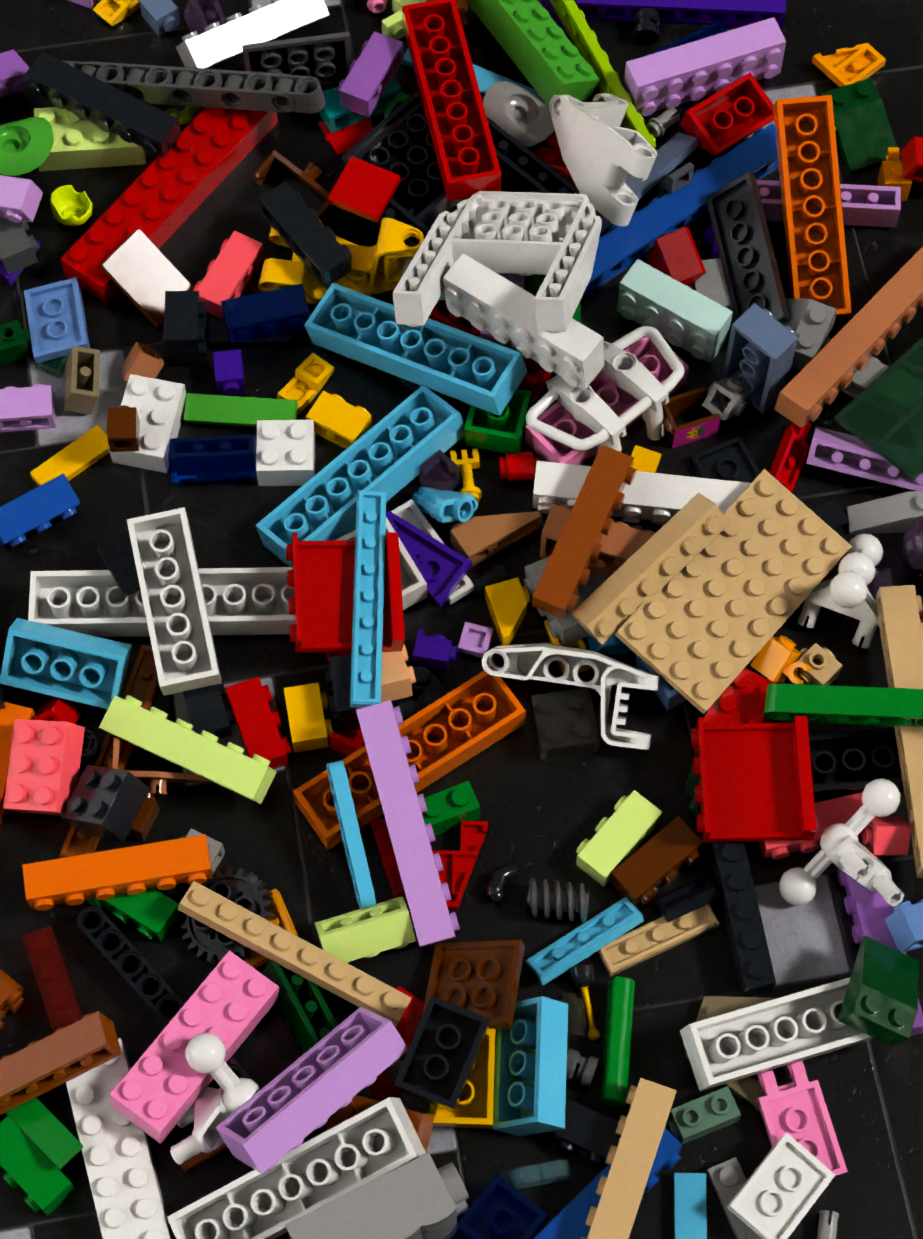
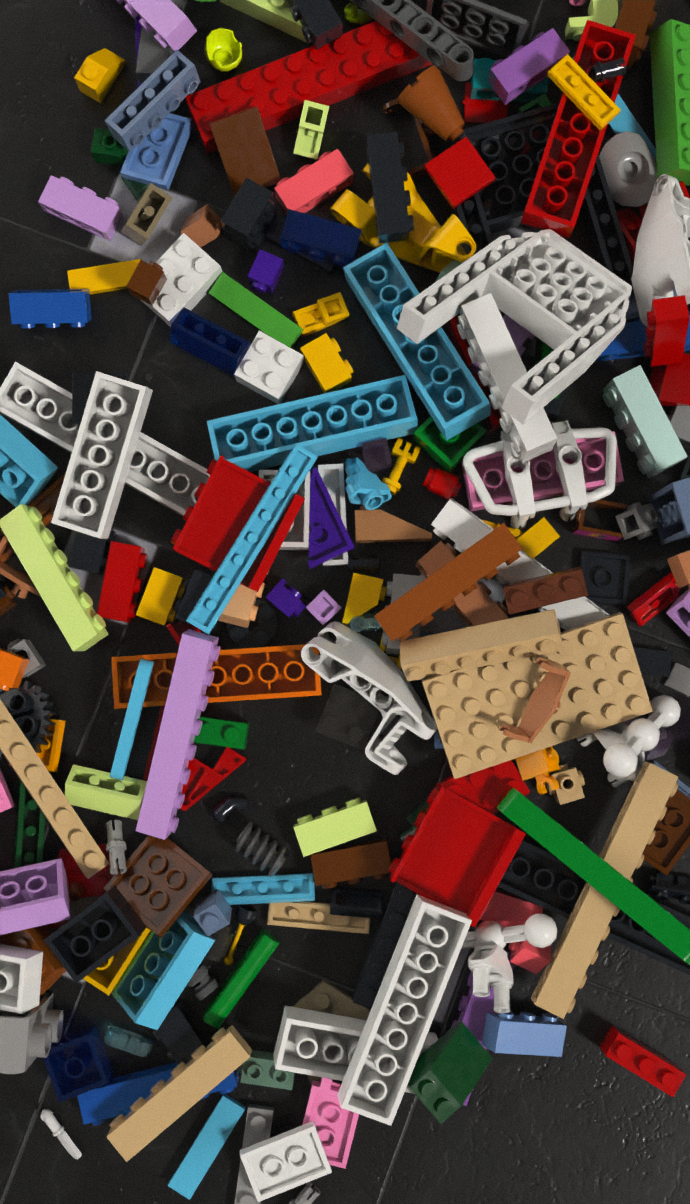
camera: 30 degrees right, 20 degrees up
(35, 273) = (153, 101): none -> sand blue brick
(196, 227) = (311, 129): none -> yellowish green brick
(304, 145) = (433, 104): none -> dark orange cone
(408, 980) = (116, 847): none -> light grey pin
(438, 62) = (583, 92): none -> yellow tile
(443, 37) = (606, 70): none -> black pin
(529, 628) = (365, 622): none -> clear light blue piece
(548, 979) = (212, 912): none -> sand blue brick
(642, 214) = (666, 330): none -> red brick
(678, 487) = (545, 590): none -> copper brick
(742, 581) = (541, 703): none -> nougat piece
(799, 945) = (403, 1010): none -> white brick

